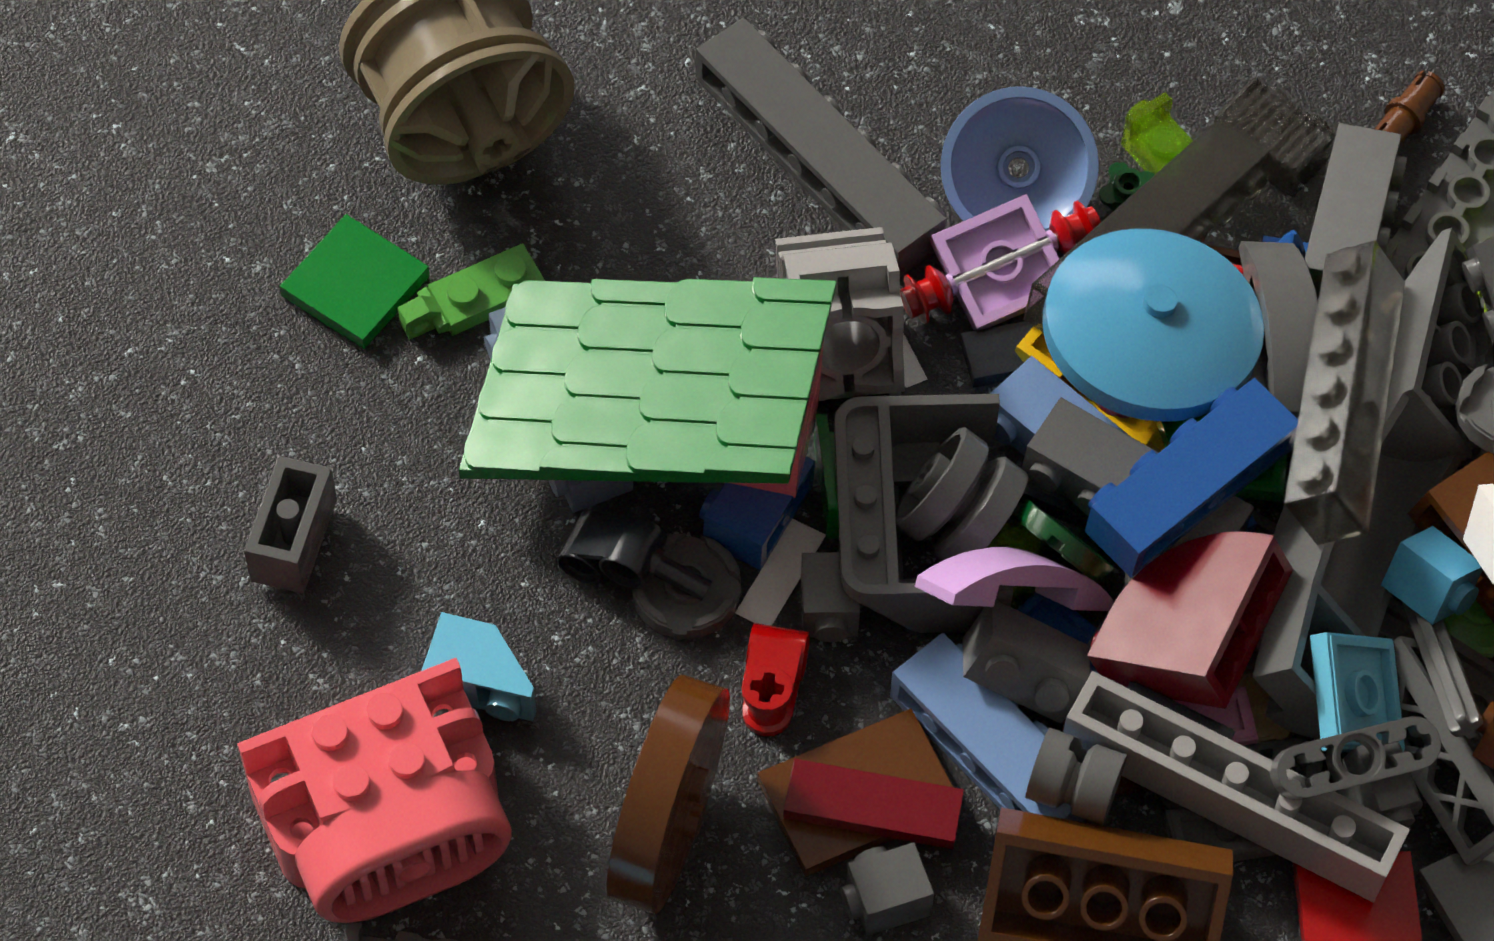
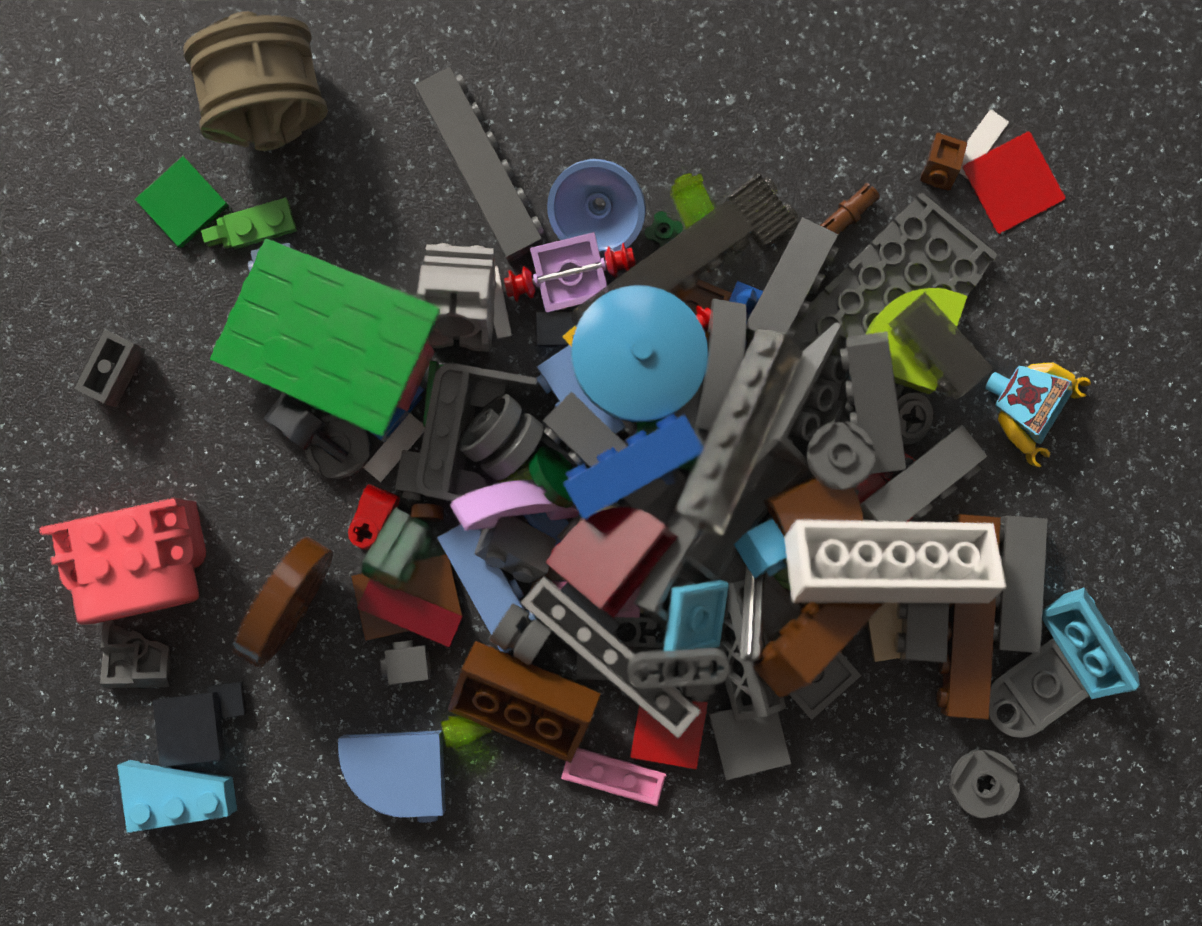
camera: 15 degrees right, 25 degrees up
(488, 667) = (204, 478): medium azure slope -> none
(828, 706) = (396, 549): none -> clear green brick
(862, 652) = (428, 512): none -> reddish brown tile

